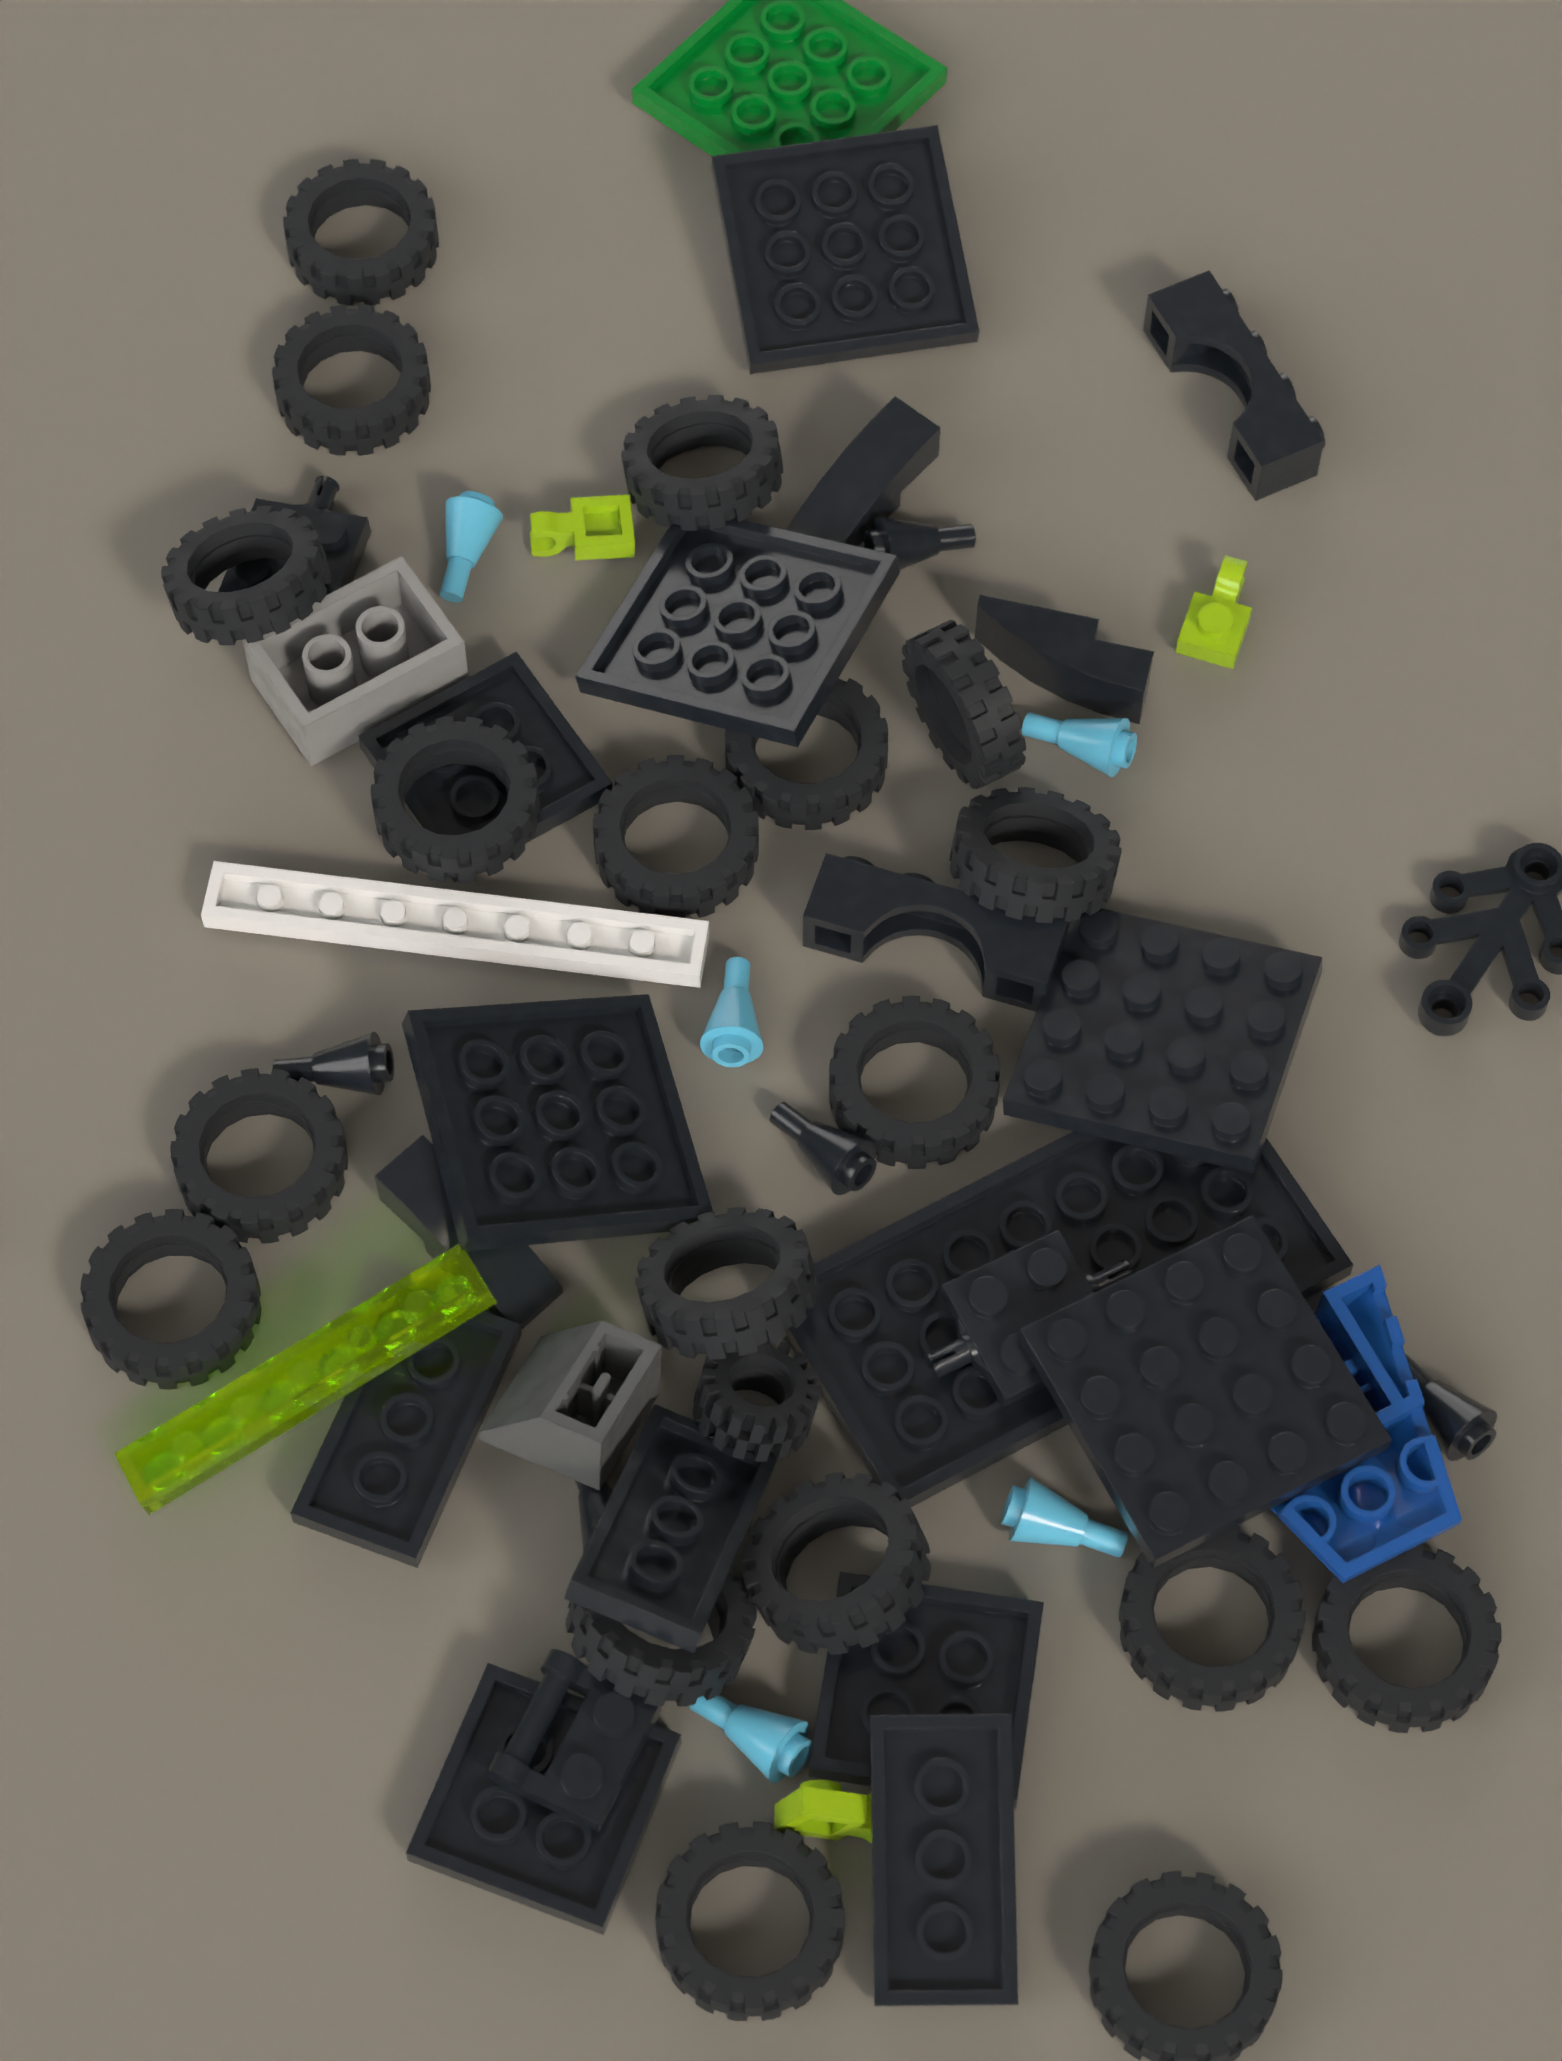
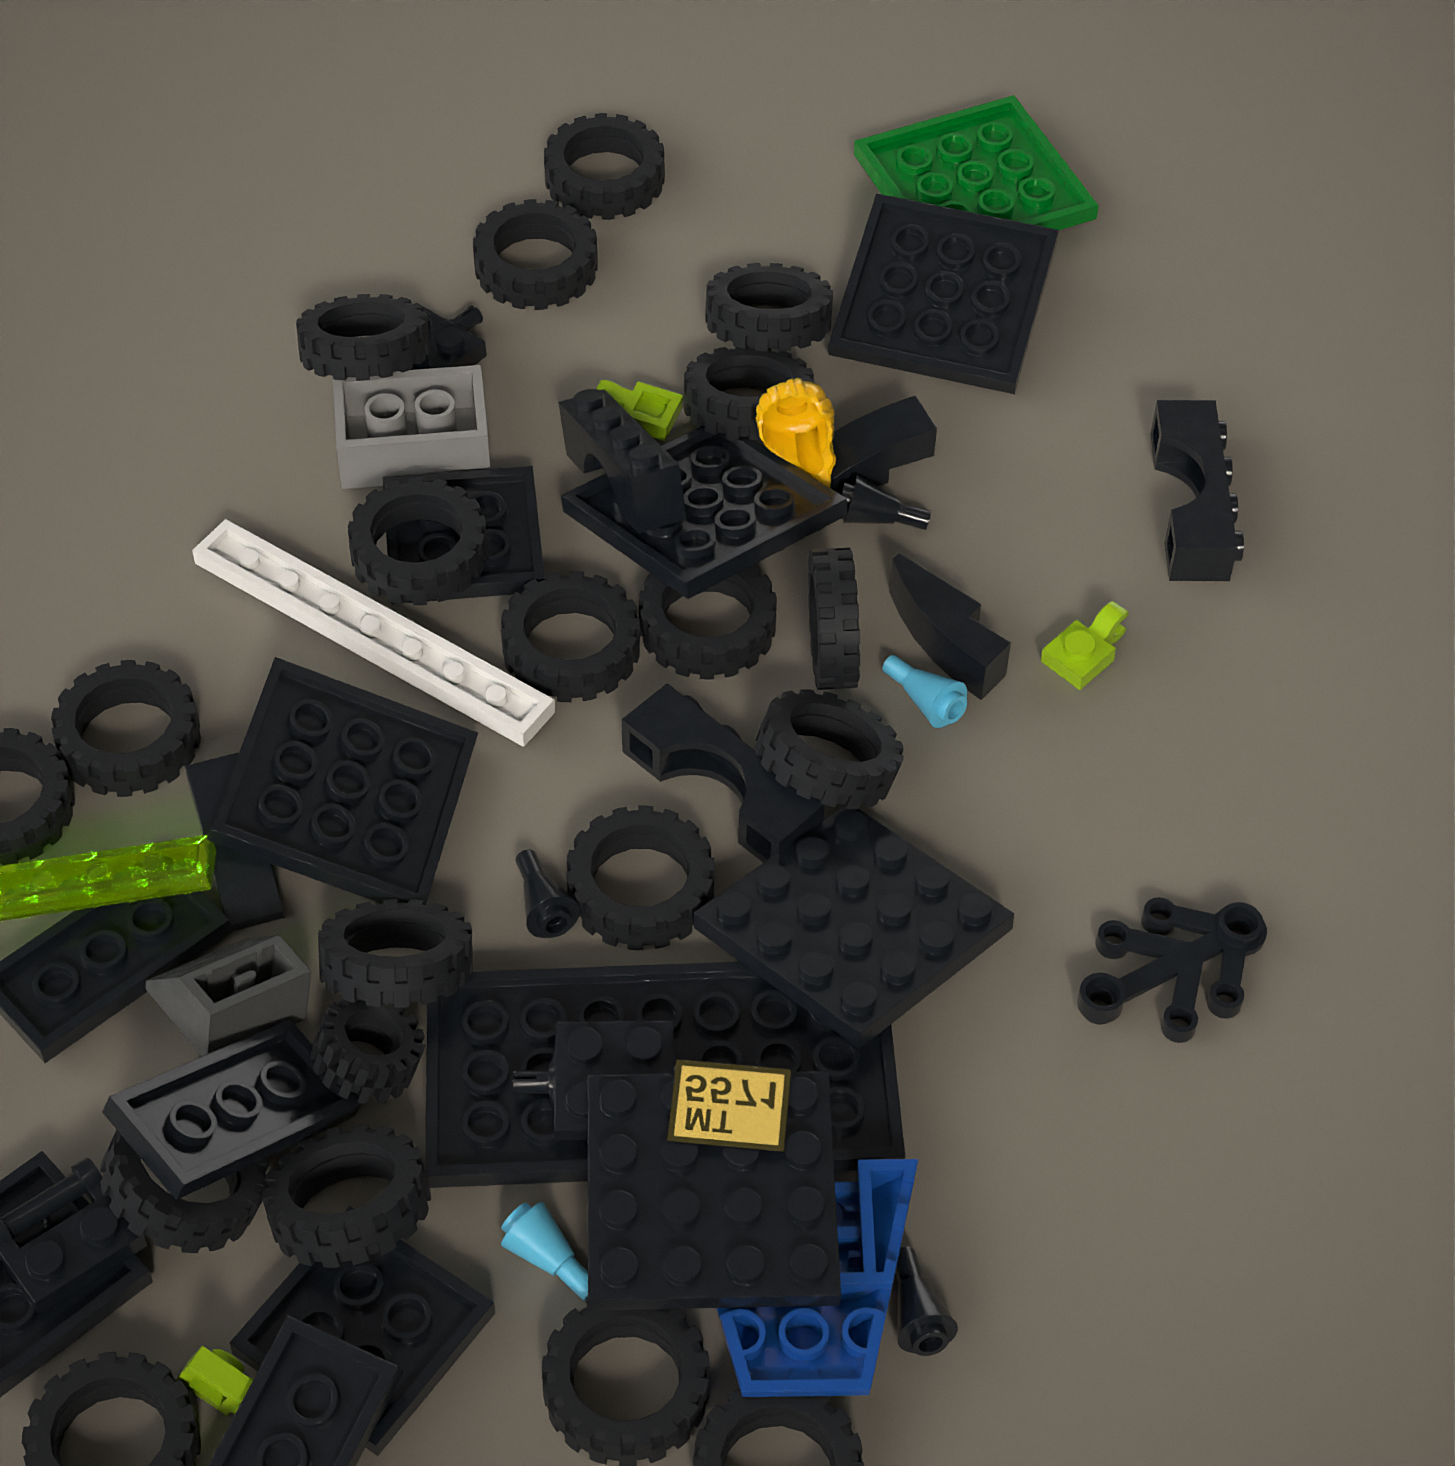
camera: 25 degrees right, 10 degrees down
(352, 1065) = (230, 693): black cone -> none
(469, 528) = (555, 375): medium azure cone -> none
(664, 379) = (745, 326): none -> black tyre
(673, 623) = (641, 472): none -> black arch
(733, 1028) = (526, 782): medium azure cone -> none
(768, 1739) = (215, 1306): medium azure cone -> none
(801, 489) = (798, 426): none -> yellow hair
(1182, 1297) = (729, 1105): none -> clear yellow sticker

